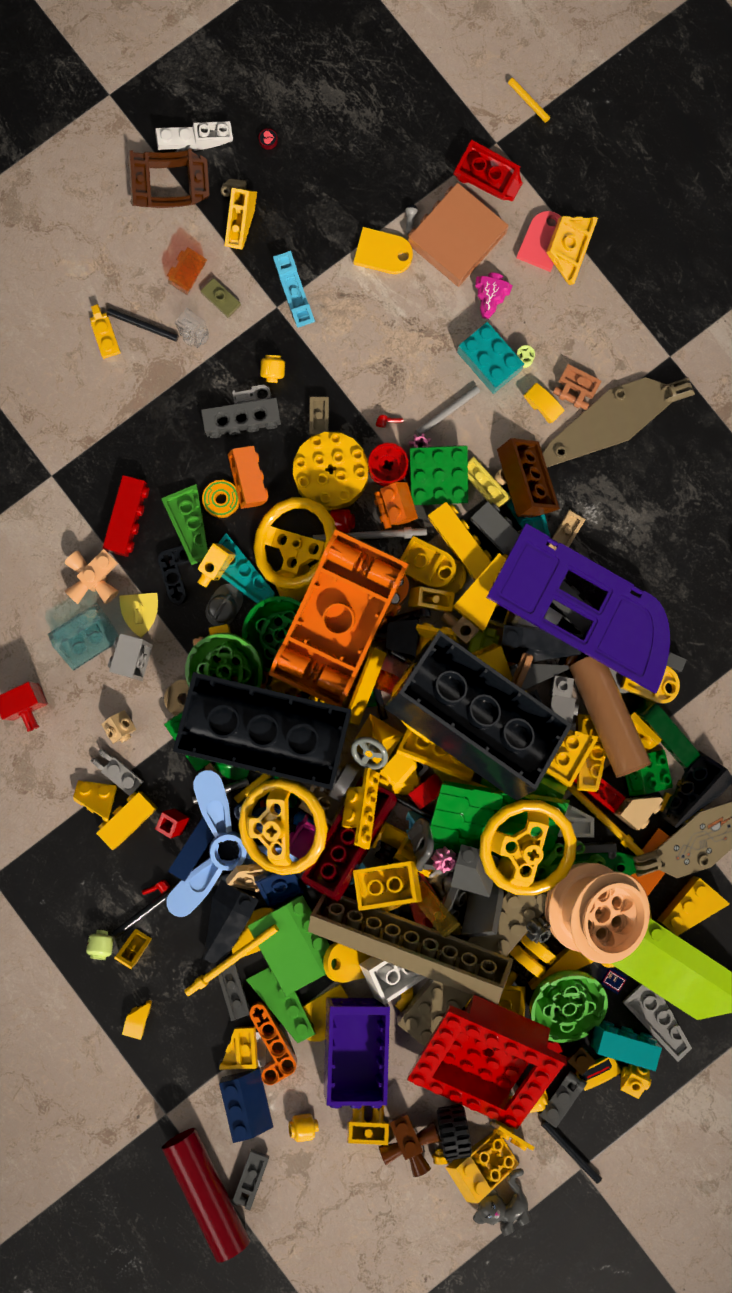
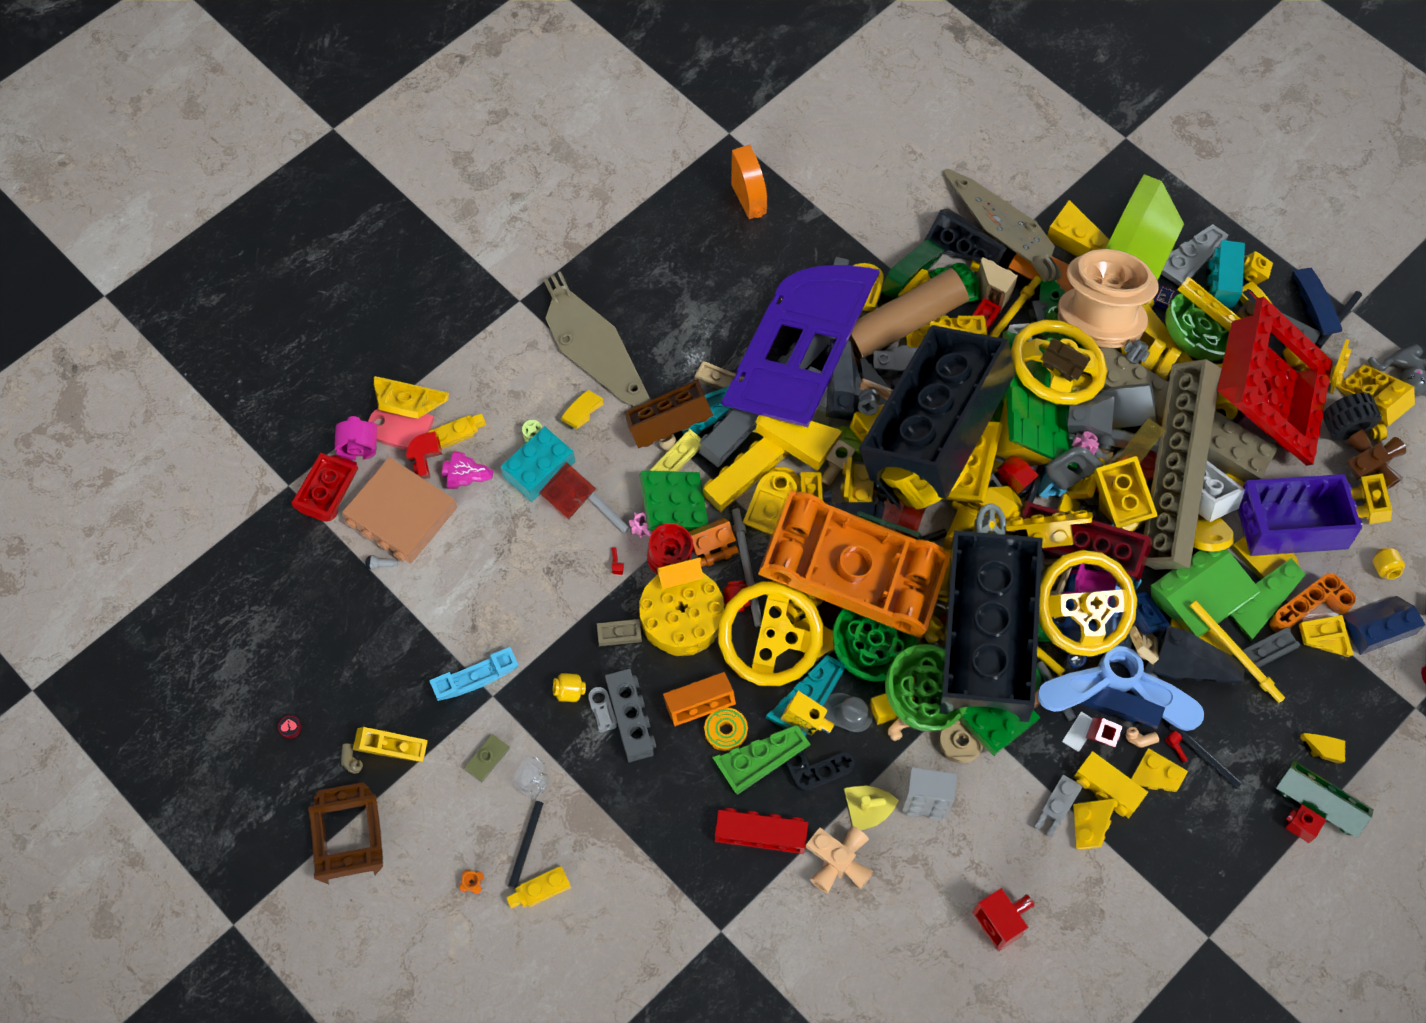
camera: 95 degrees left, 20 degrees down
(71, 983) = (1304, 823): none -> red brick
(83, 636) = (909, 861): clear light blue slope -> none
(87, 1006) = (1325, 799): none -> brick
(100, 945) = (1255, 796): yellowish green head -> none
(113, 274) = (468, 875): none -> orange plate
(119, 727) = (1008, 805): tan brick -> none
(133, 949) = (1250, 760): yellow slope -> none
(134, 864) = (1158, 773): none -> yellow wing
(166, 855) = (1140, 740): none -> light nougat arm
(182, 804) = (1077, 734): none -> white sticker
(186, 271) = (459, 795): clear orange brick -> none
(198, 137) = (290, 809): white slope -> none
(358, 467) = (680, 573): none -> light orange panel
(375, 657) = (911, 533): none -> clear green piece
(381, 251) = (421, 589): yellow tile -> none
(460, 382) = (567, 490): none -> clear red plate
(509, 660) = (868, 401): none -> dark grey wheel
(513, 254) = (420, 449): none -> red brick
(516, 846) = (1064, 359): none -> dark brown brick
(529, 100) = (239, 456): yellow bar -> none
(530, 195) = (355, 438): none -> dark pink brick
(534, 289) = (459, 430): none -> yellow hinge
(579, 382) = (556, 377): nougat plate -> none
(588, 1023) = (1207, 303): none -> yellow tile
(591, 1134) = (1318, 301): none -> dark blue slope

